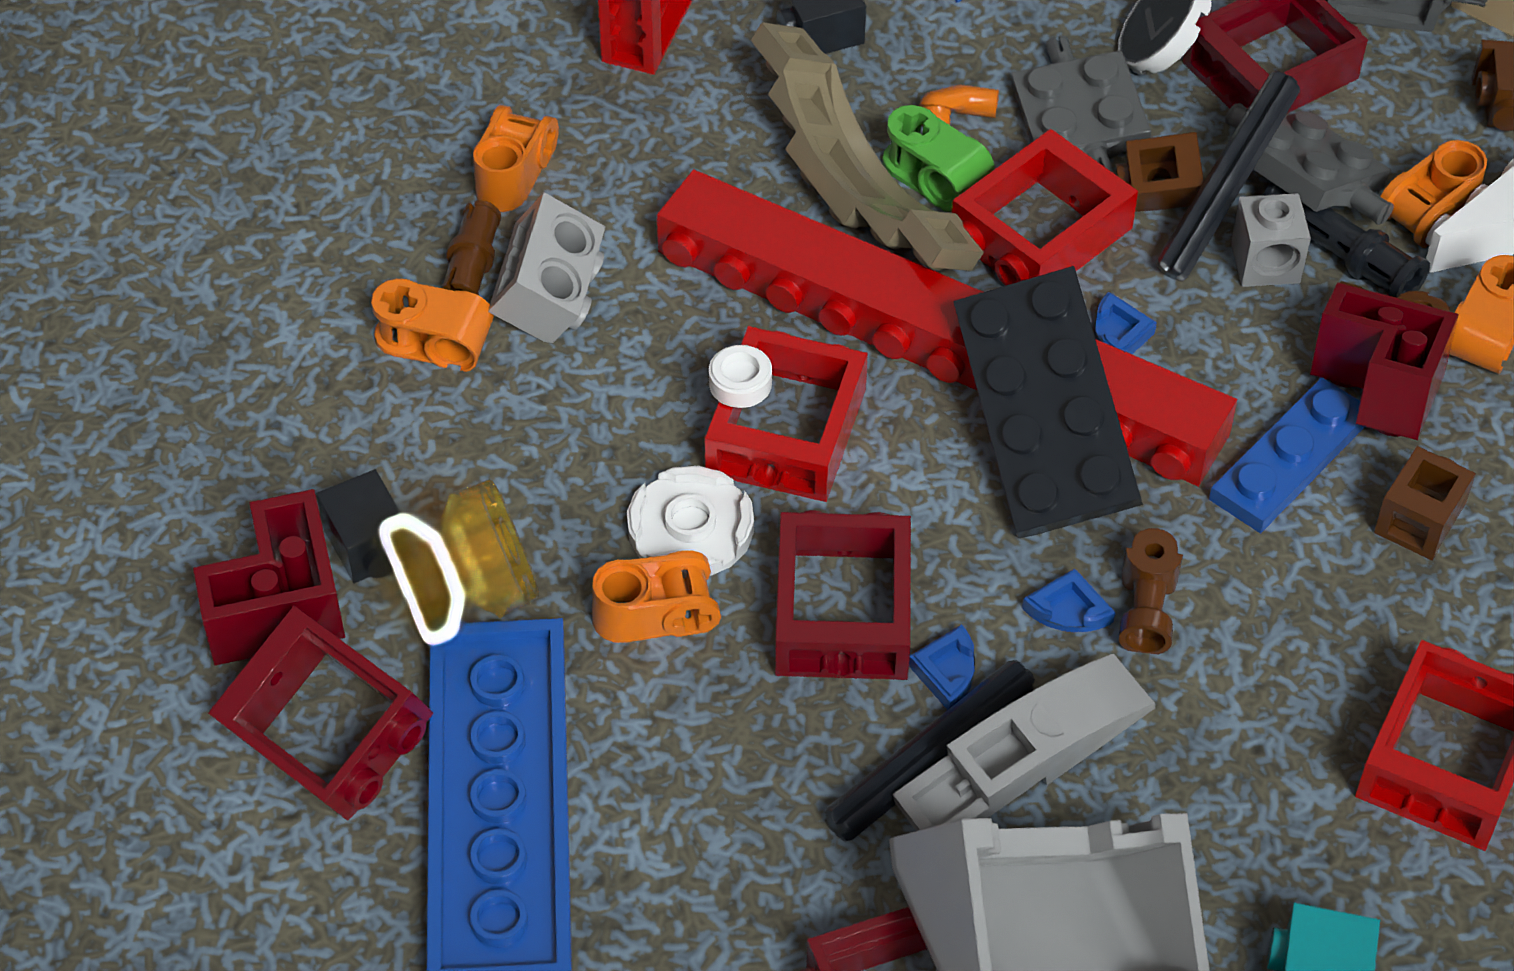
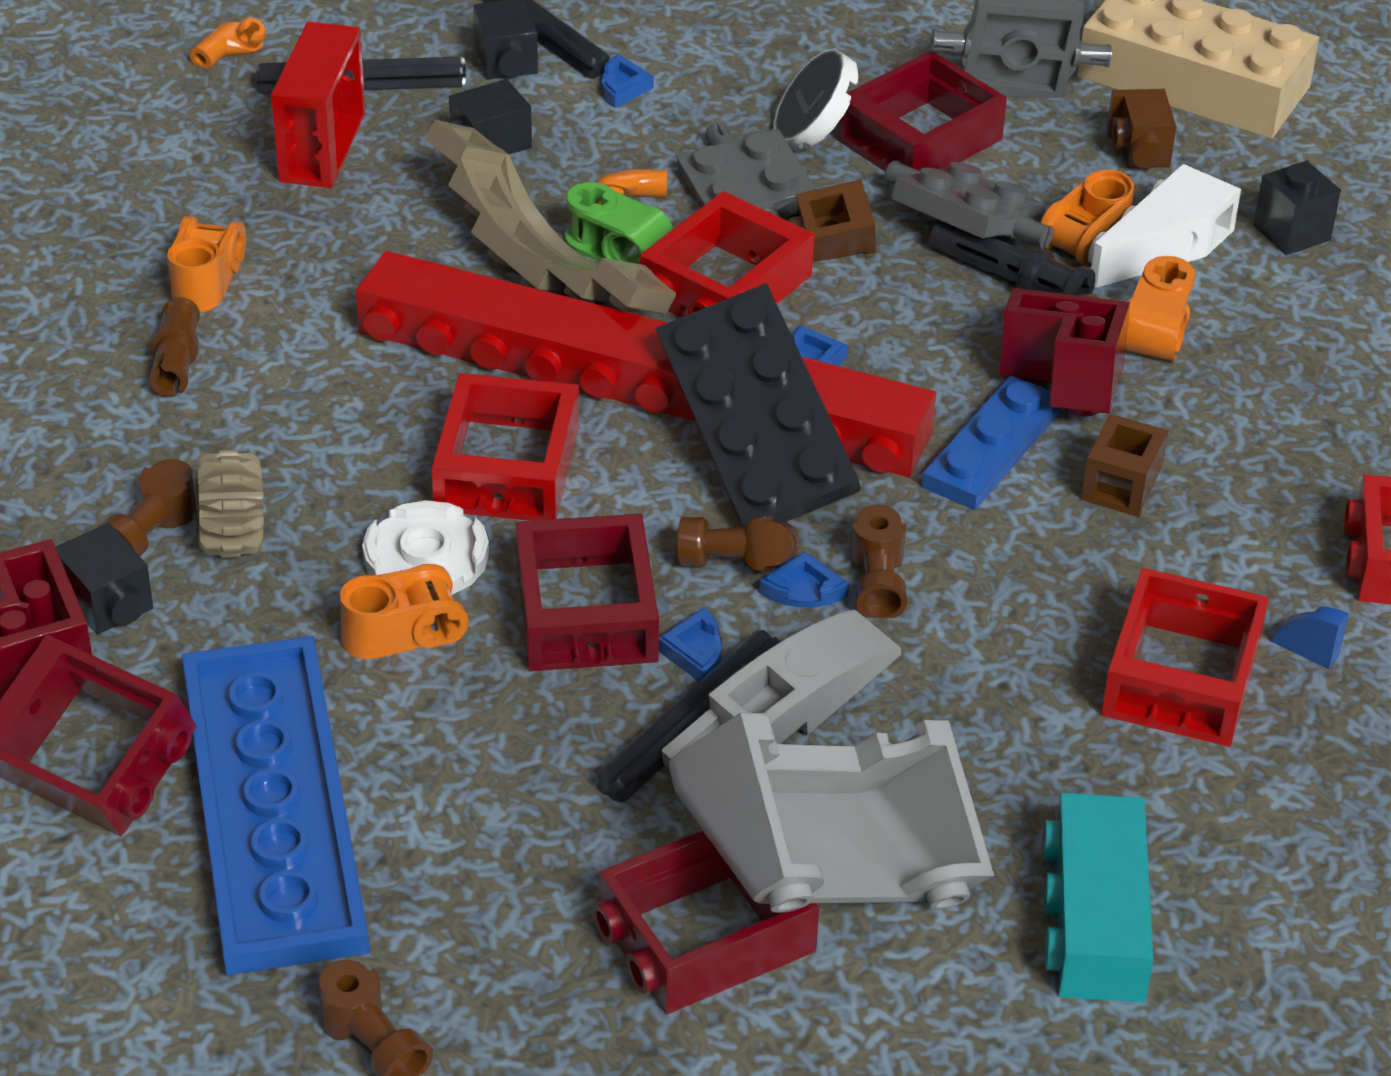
camera: 10 degrees left, 10 degrees down
(436, 326) = (145, 406): orange piece -> none
(438, 440) = (165, 503): none -> reddish brown leg
(459, 561) = (206, 586): clear yellow piece -> none
(500, 449) = (229, 503): none -> dark tan gear
(548, 270) = (255, 347): light grey brick -> none
(740, 376) = (459, 411): white tile -> none
(1033, 558) = (760, 543): none -> reddish brown leg
(1228, 176) = (896, 215): black axle -> none
(1270, 240) = (944, 266): light grey brick -> none

